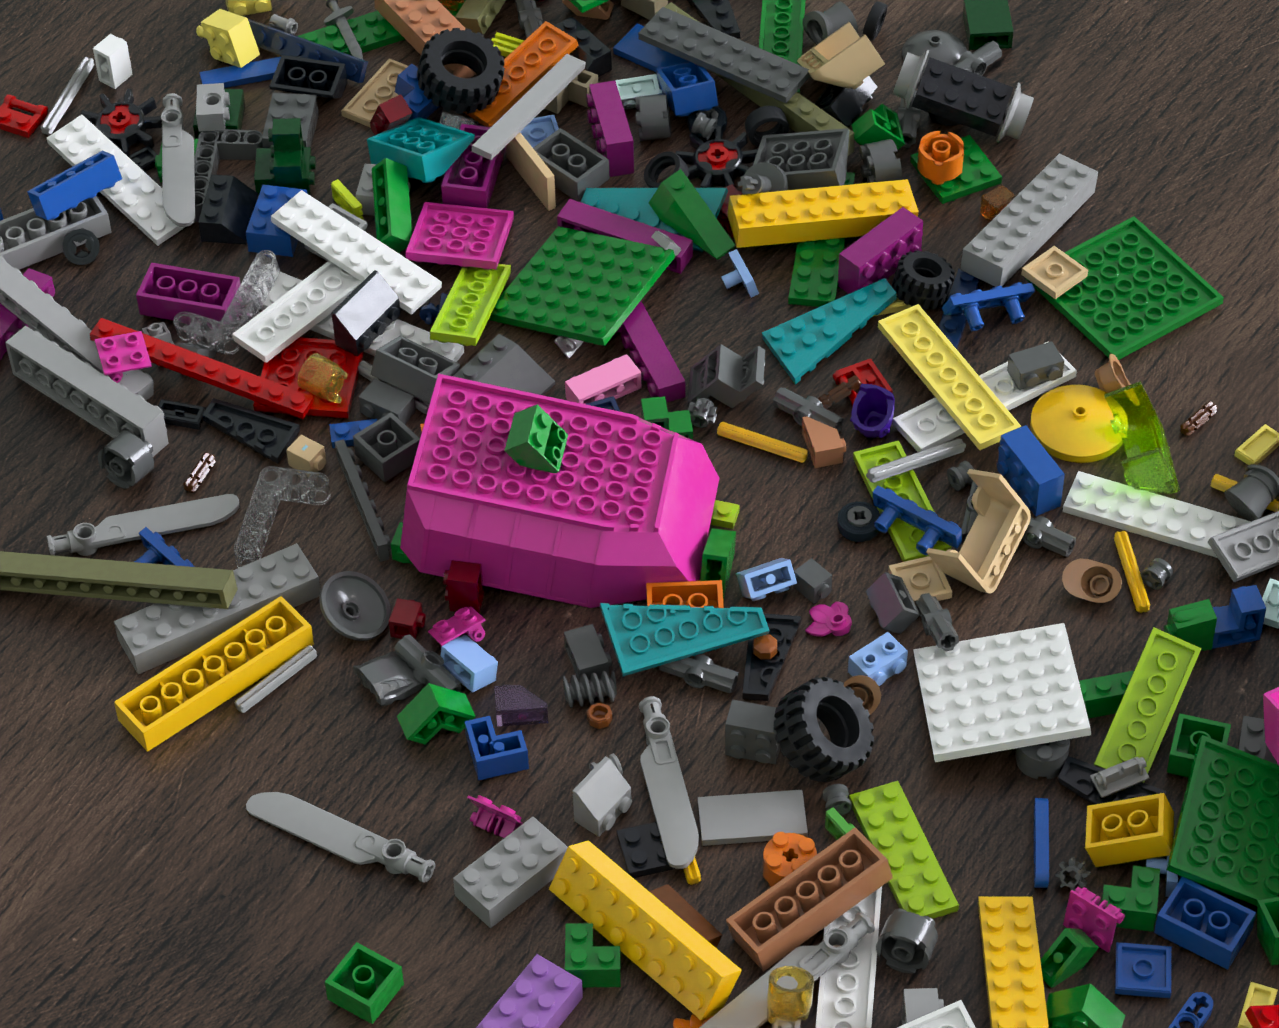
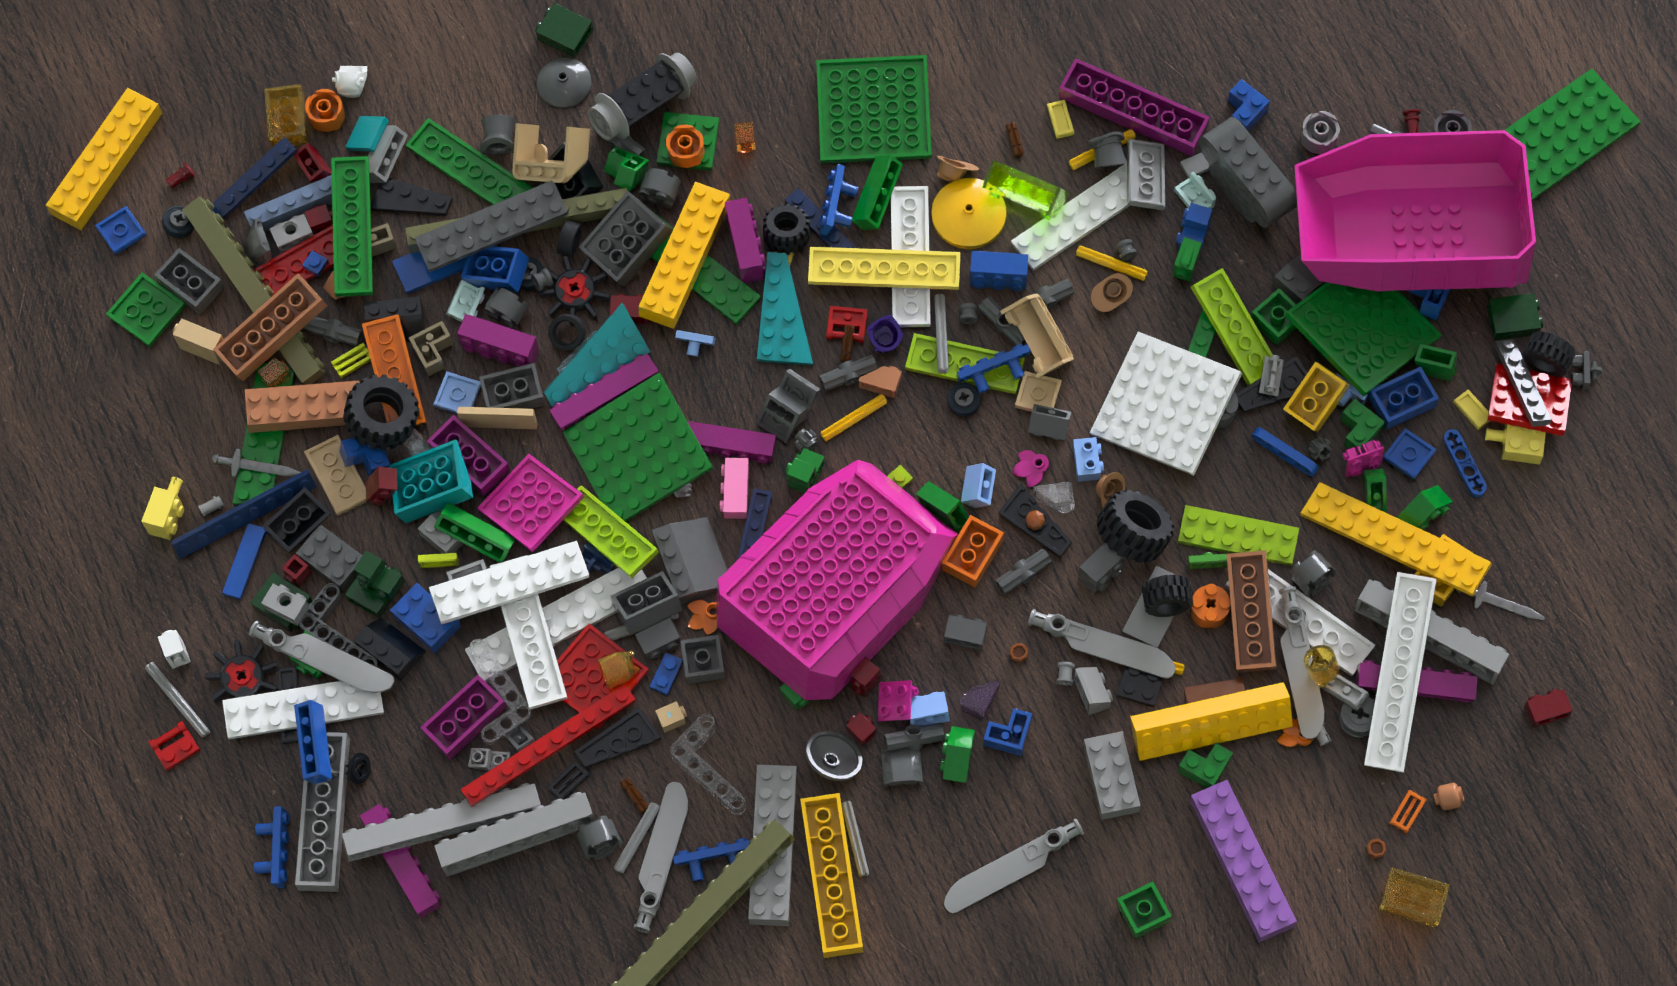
camera: 55 degrees left, 20 degrees up
(122, 354) = (509, 791): dark pink hinge -> none
(149, 497) = (637, 837): none -> light grey axle
(229, 38) = (211, 554): light yellow brick -> none
(256, 105) = (296, 570): none -> dark red brick
(365, 314) = (577, 608): slope -> none
(365, 506) = (742, 702): dark grey plate -> none
(491, 817) = (1070, 754): dark pink hinge -> none
(528, 107) = (452, 386): light grey tile -> none
(536, 440) = (822, 565): green slope -> none
(590, 688) = (995, 646): dark grey piece -> none
(666, 242) = (645, 372): light grey tile -> none
(667, 633) = (994, 576): teal wing -> none
(686, 212) = (625, 341): green wedge -> none
(763, 178) = (634, 276): dark grey piece -> none
(763, 802) = (1167, 595): none -> black tyre
(813, 581) = (997, 457): dark grey brick -> none
(813, 656) = (1056, 496): none -> clear slope
(837, 797) = (1178, 550): dark grey wheel -> none
(875, 20) = (512, 102): black tyre -> none
(937, 622) = (1084, 405): dark grey piece -> none
(980, 59) = (597, 66): dark grey piece -> none
(1029, 220) = (778, 128): light grey brick -> none
(1030, 331) = (877, 192): none -> green brick
(1035, 365) = (913, 209): dark grey brick -> none
(1054, 272) = (838, 143): tan plate -> none

